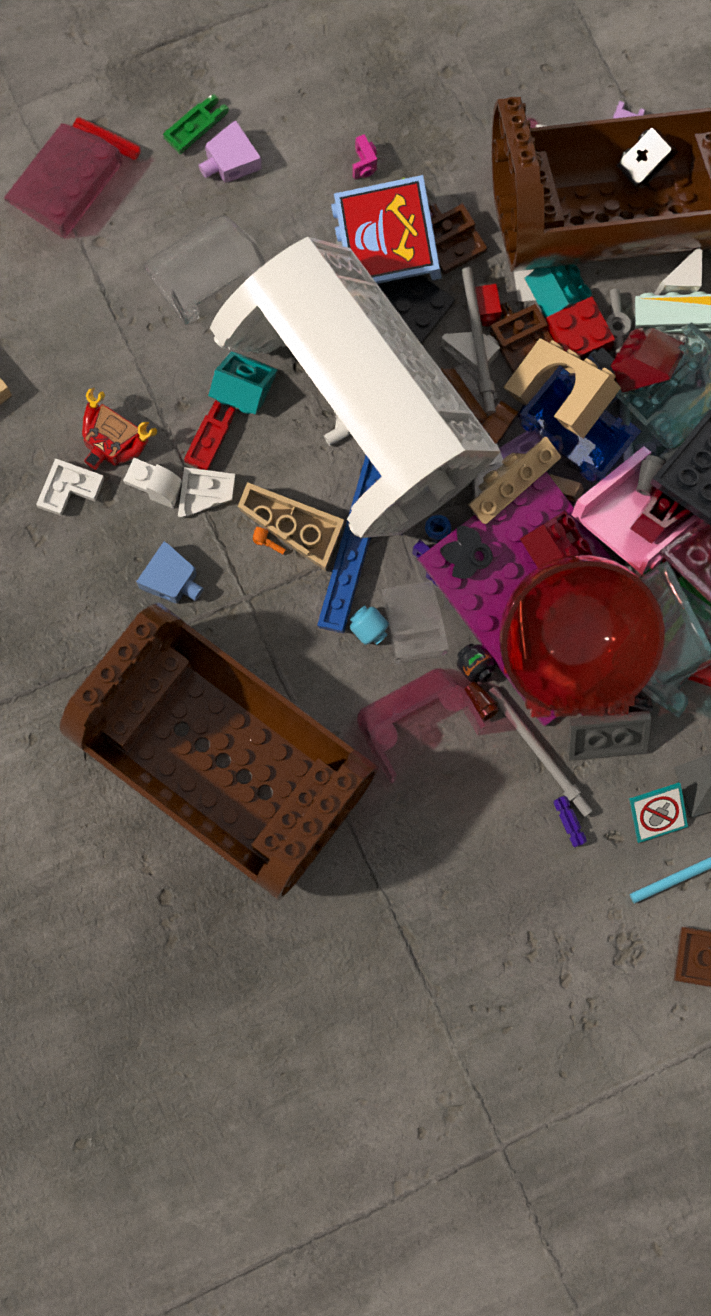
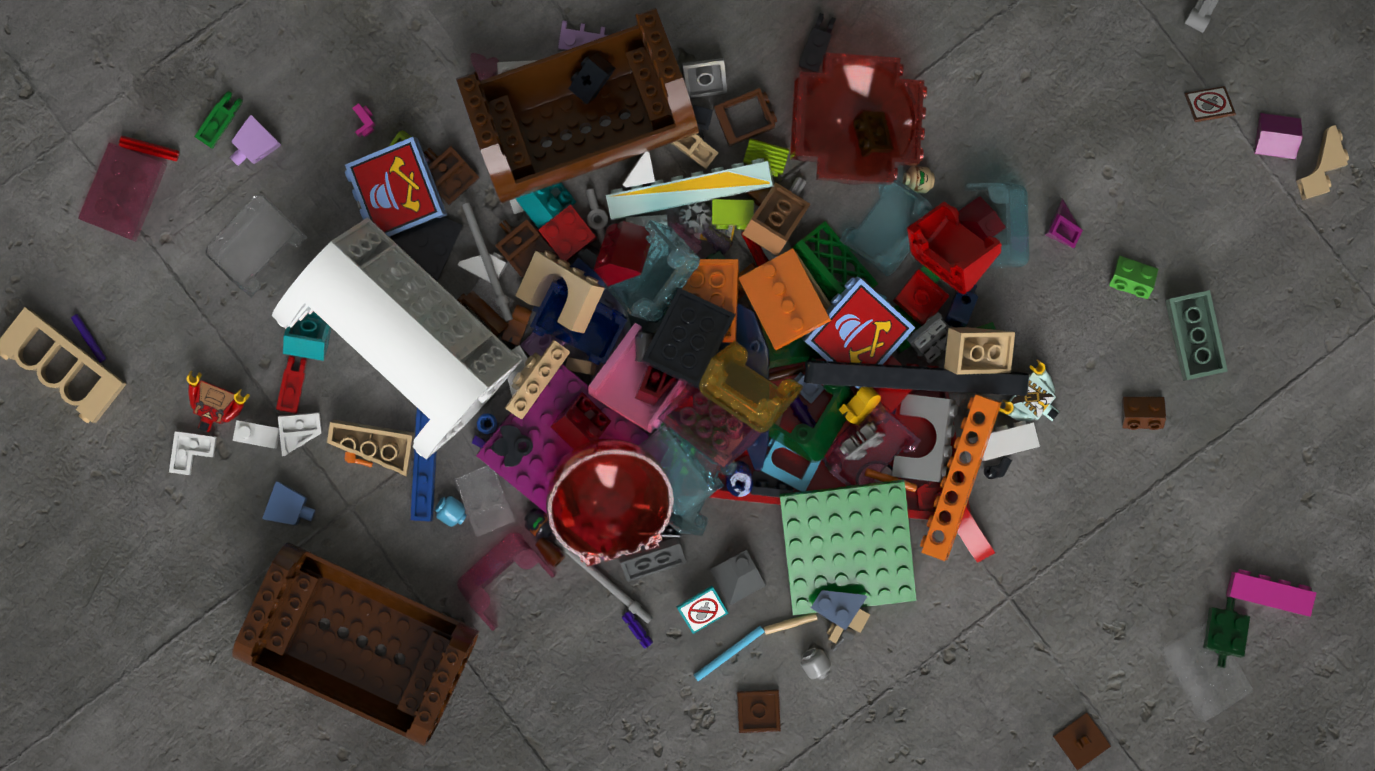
camera: 10 degrees left, 10 degrees up
(488, 304) = (488, 226): red brick -> none

